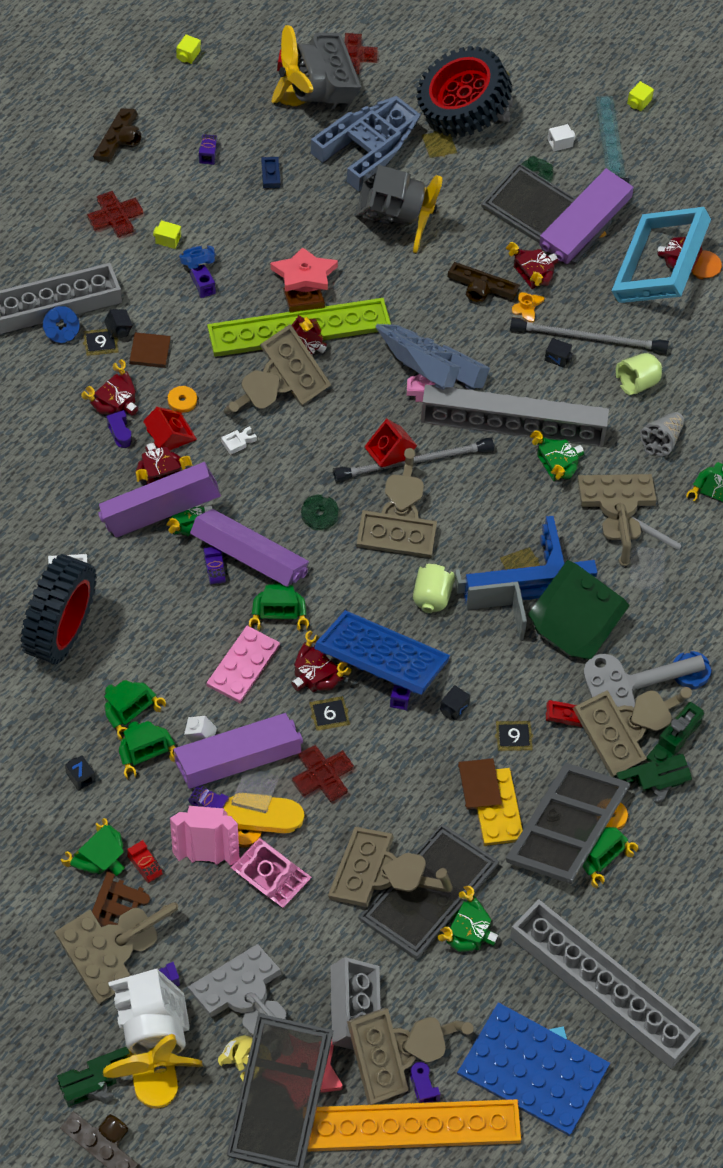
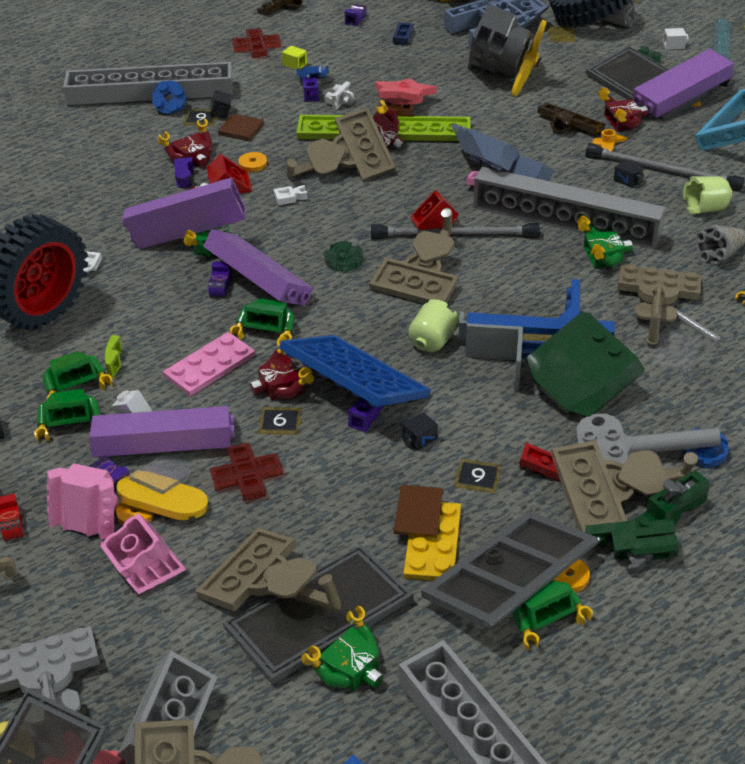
camera: 20 degrees right, 15 degrees down
(155, 678) = (112, 355): none -> lime slope
(241, 287) = (340, 96): none -> white hips

